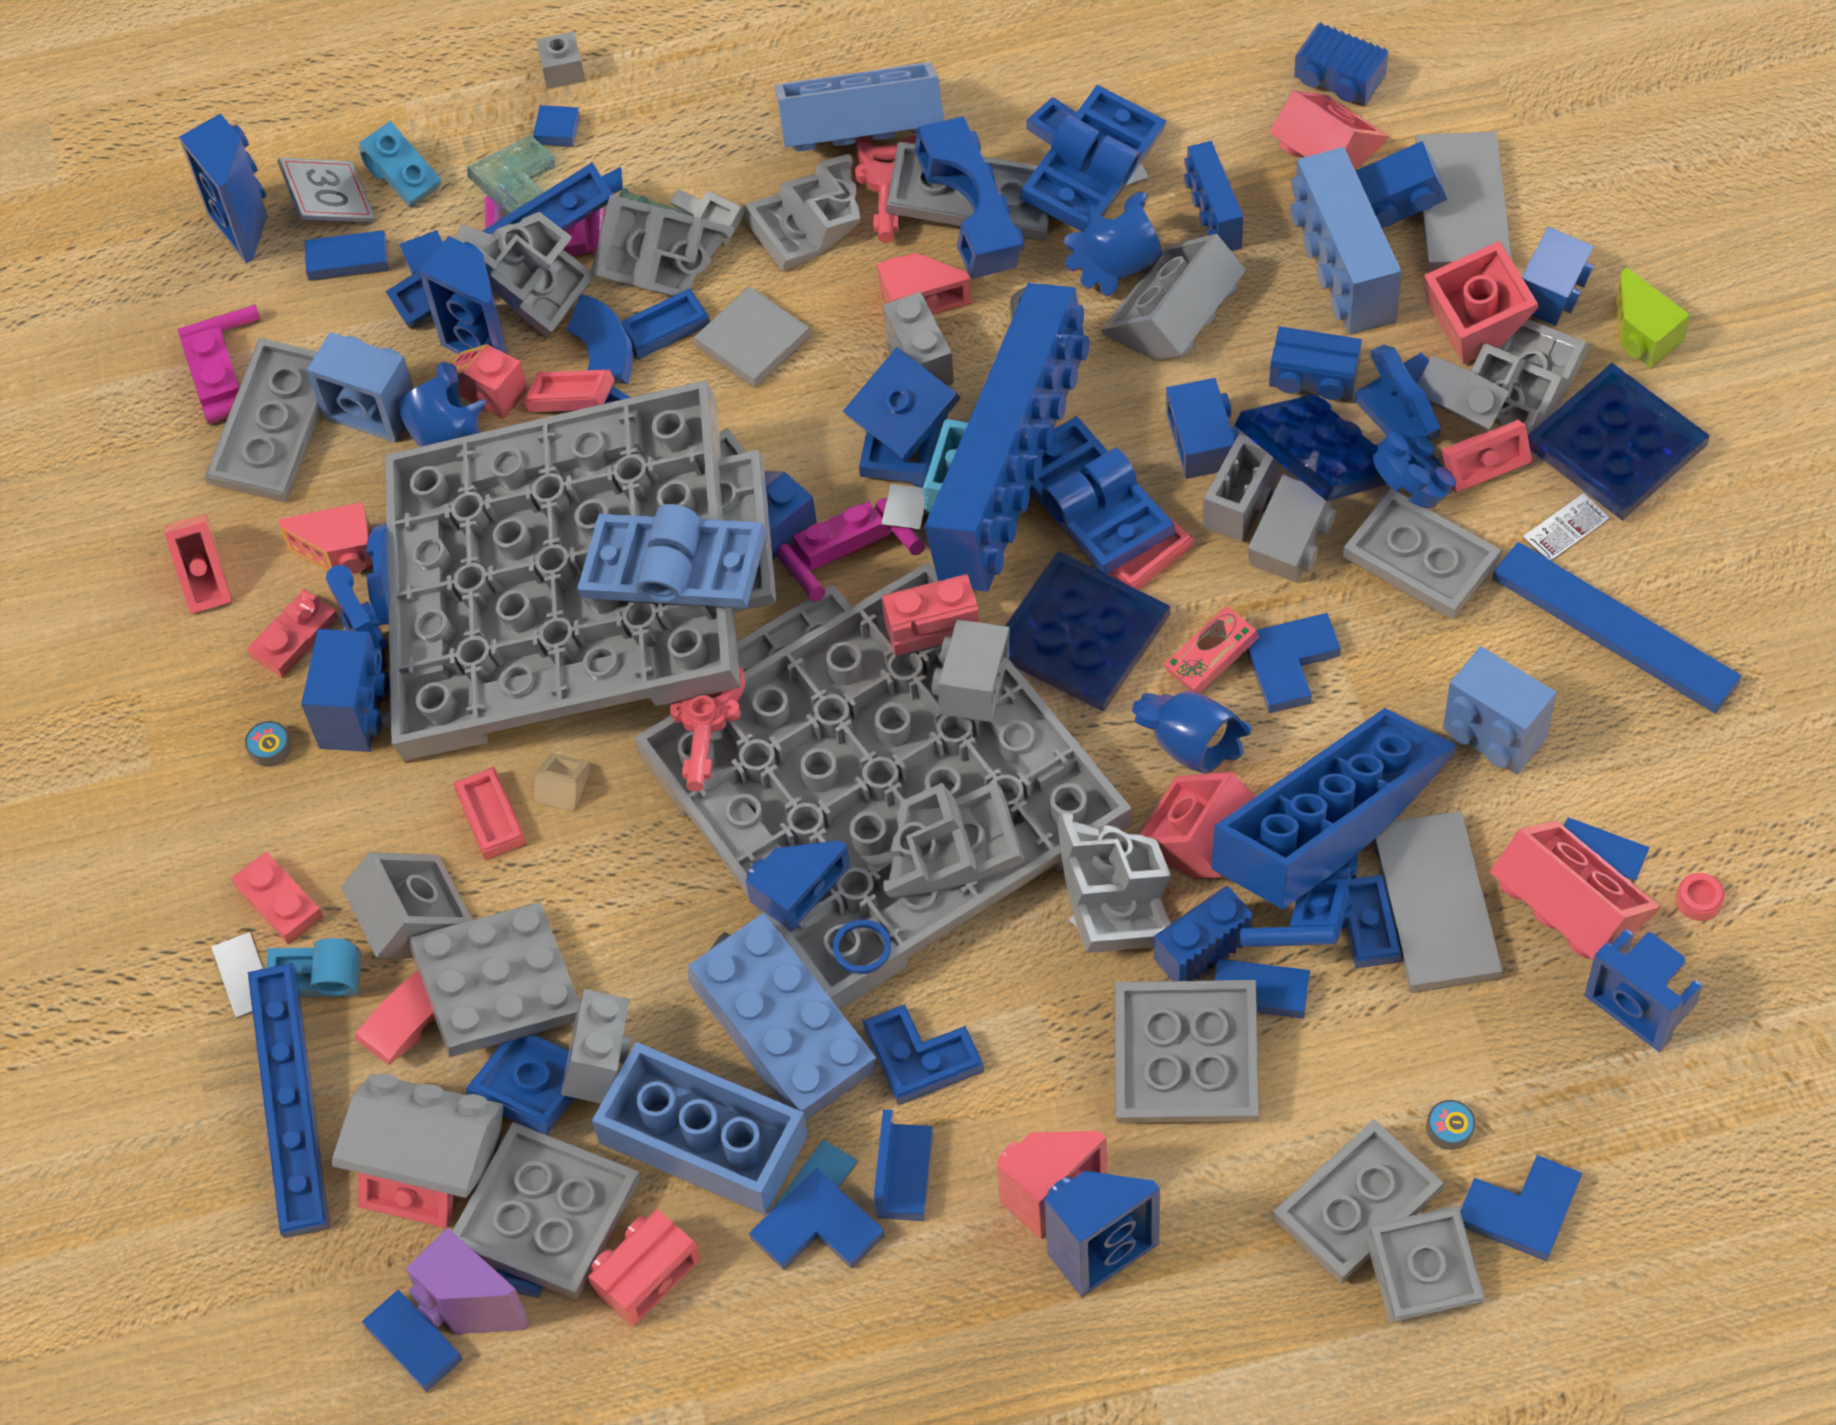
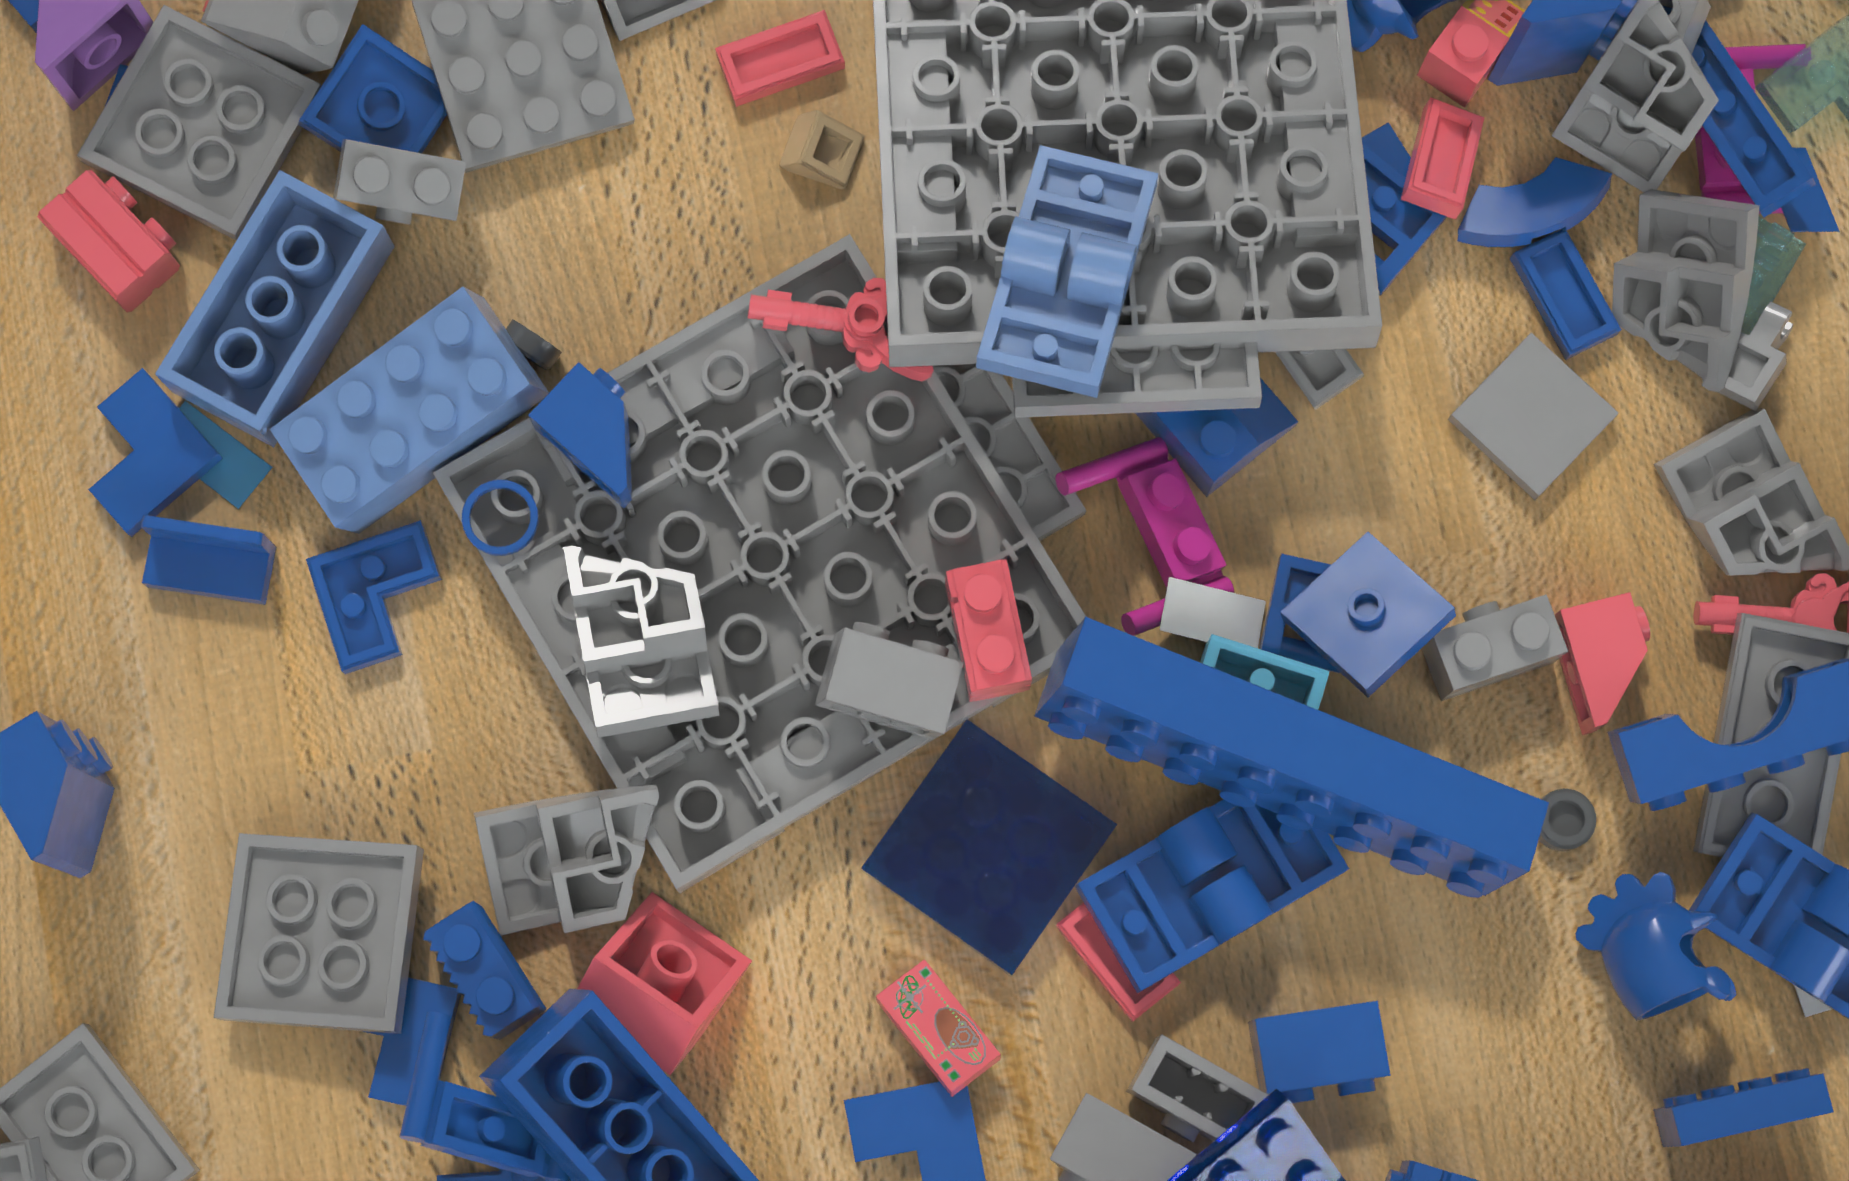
camera: 85 degrees right, 20 degrees up
(1038, 1162) = (149, 735): coral slope -> none
(1176, 298) = (1558, 1033): light grey slope -> none
(1186, 726) = (809, 978): blue piece -> none

